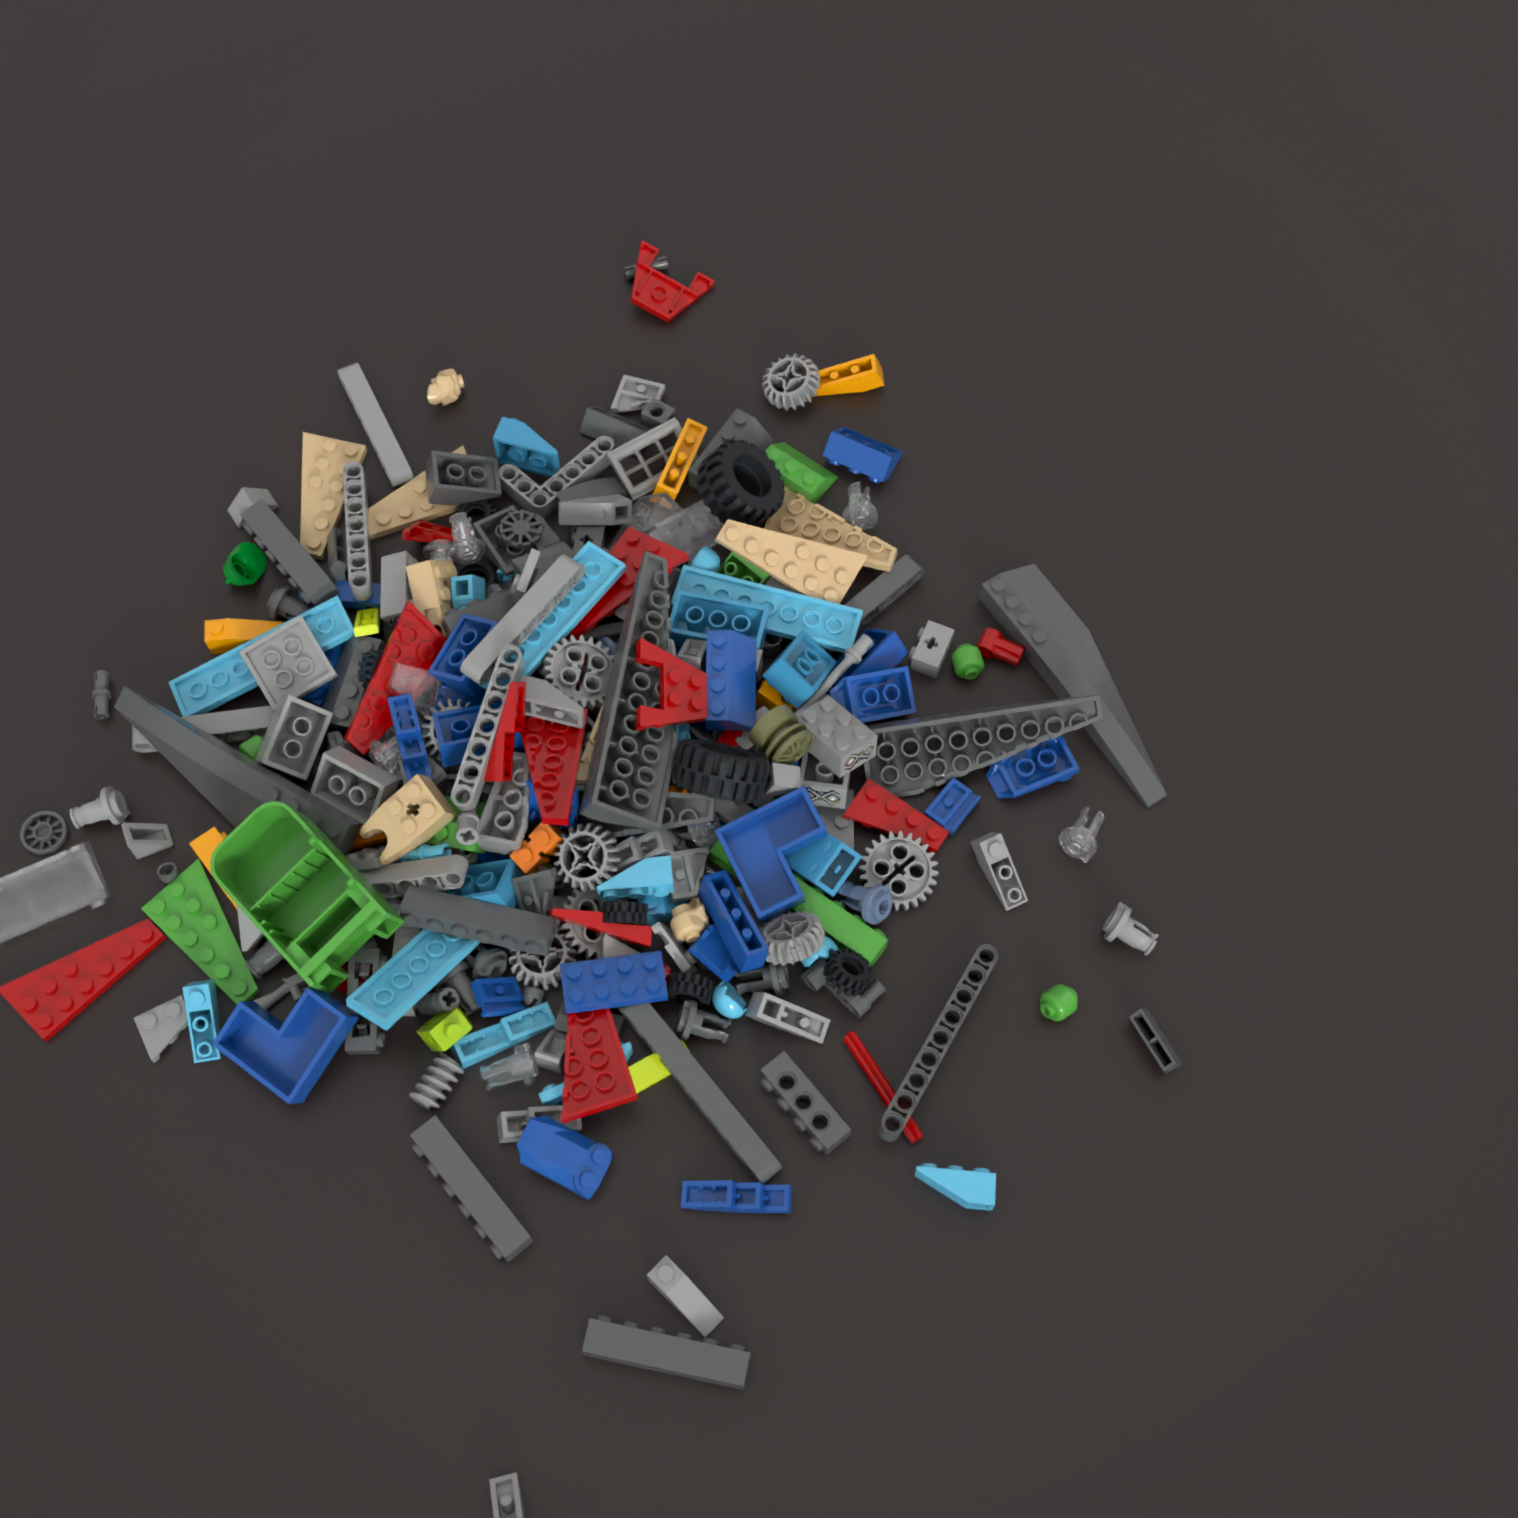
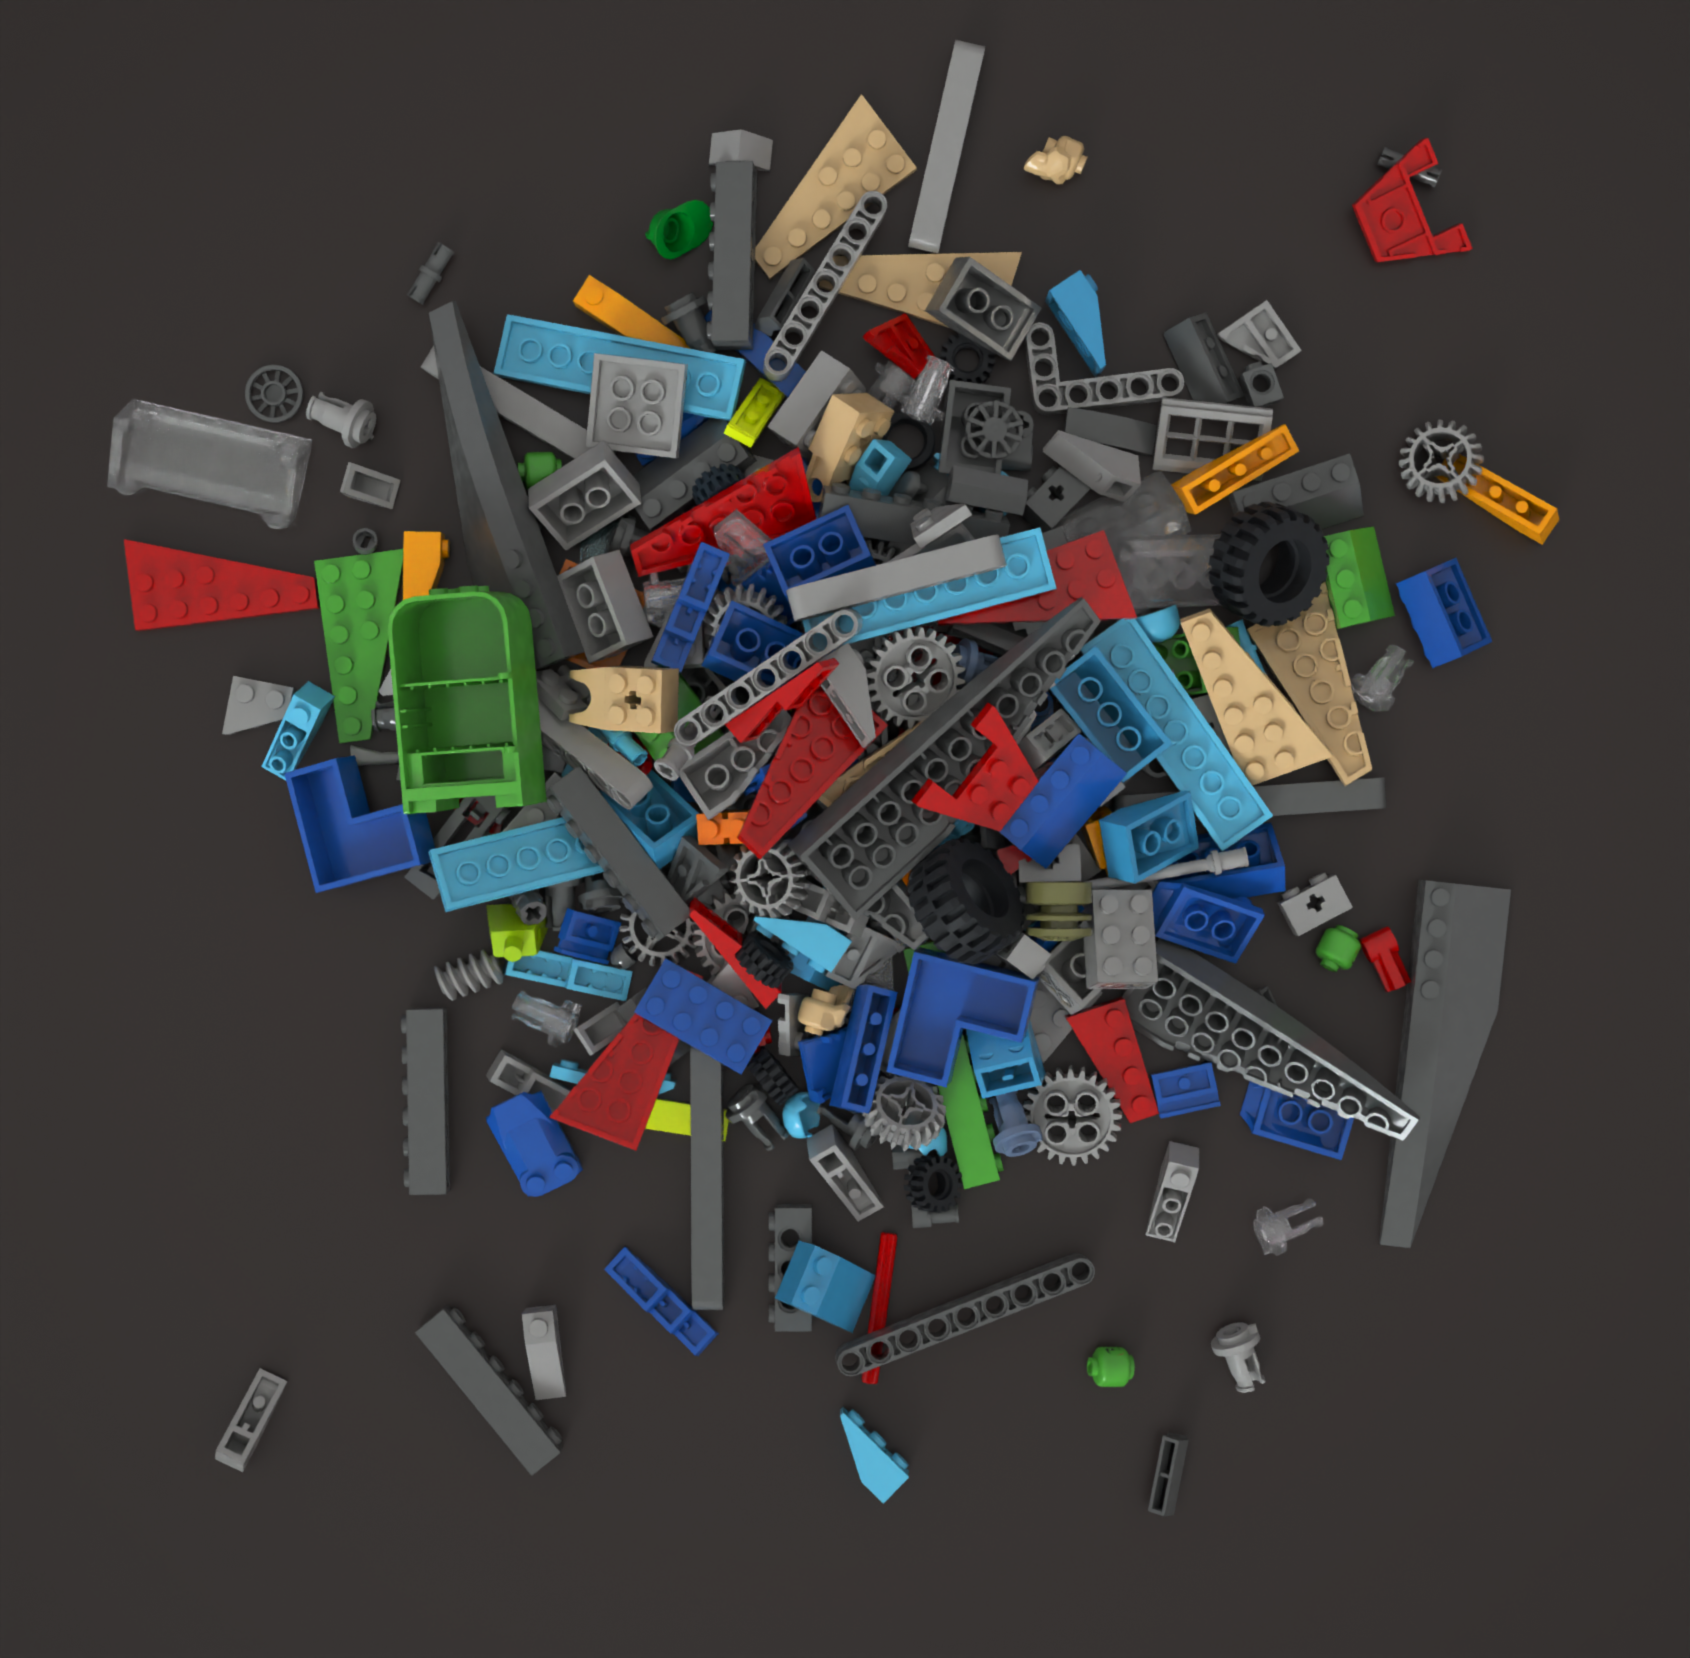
camera: 40 degrees right, 25 degrees up
(833, 1090) = (825, 1286): none -> dark azure slope

